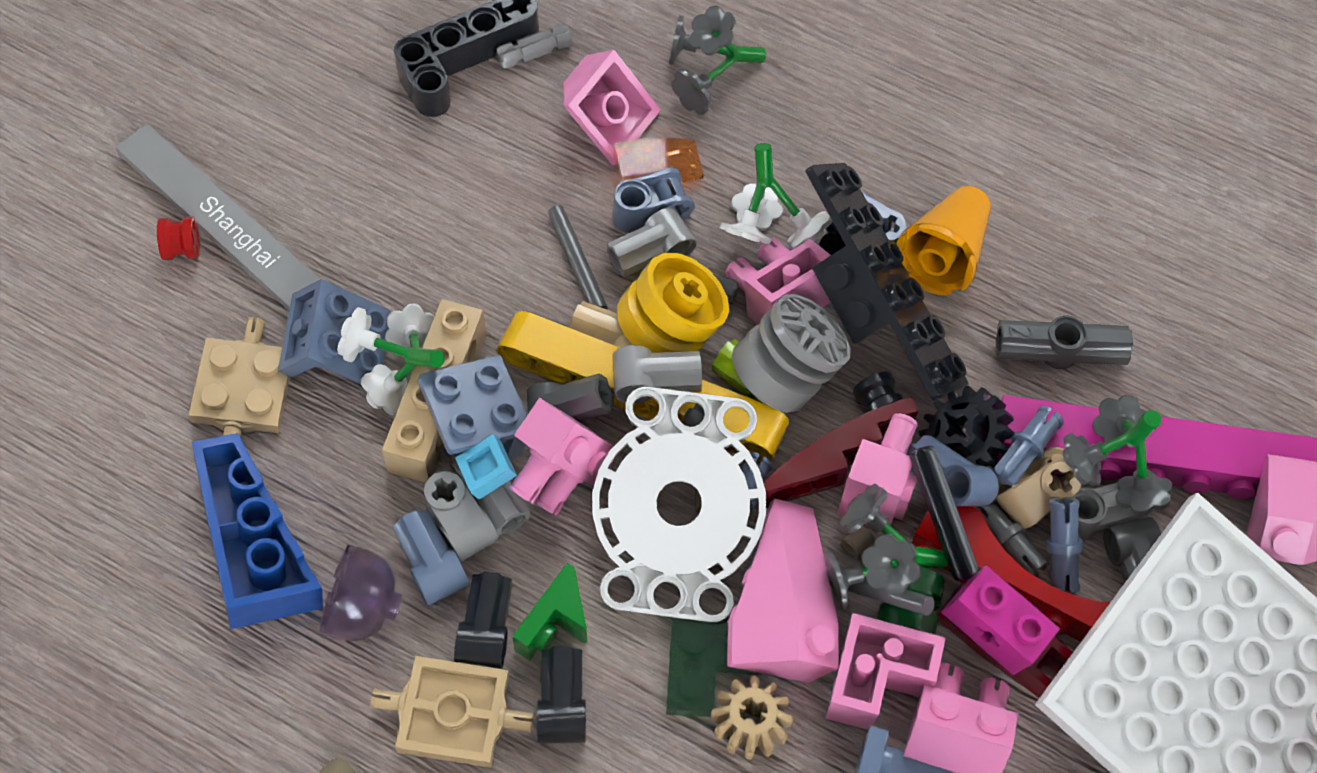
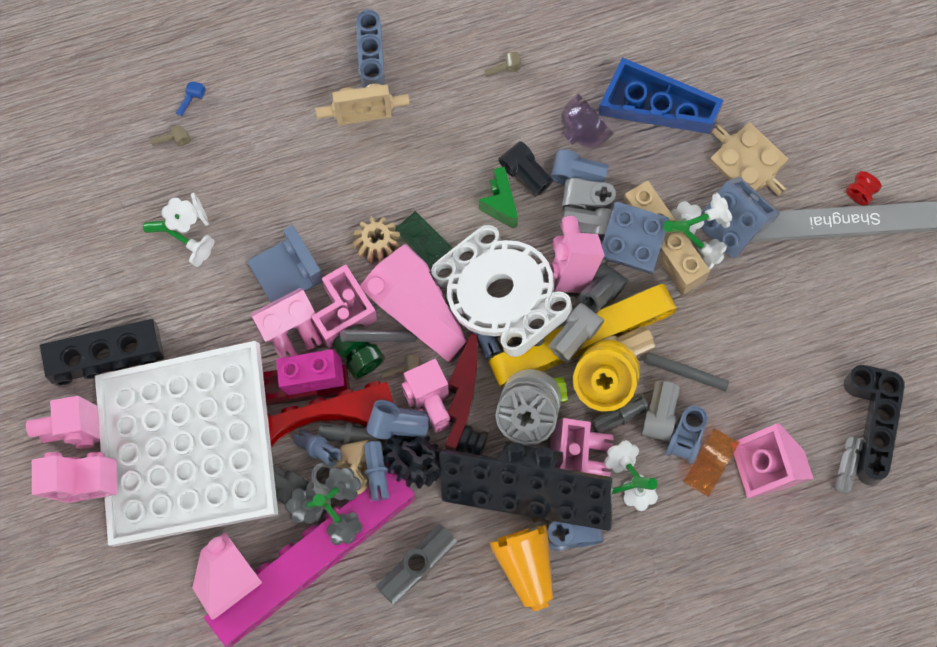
camera: 135 degrees right, 10 degrees up
(452, 711) = (497, 124): tan plate -> none
(485, 466) = (596, 215): medium azure plate -> none
(561, 707) = (455, 167): black piece -> none
(711, 35) = (758, 541): dark grey plant -> none
(890, 562) = (375, 329): dark grey plant -> none
(943, 512) = (380, 391): black axle -> none

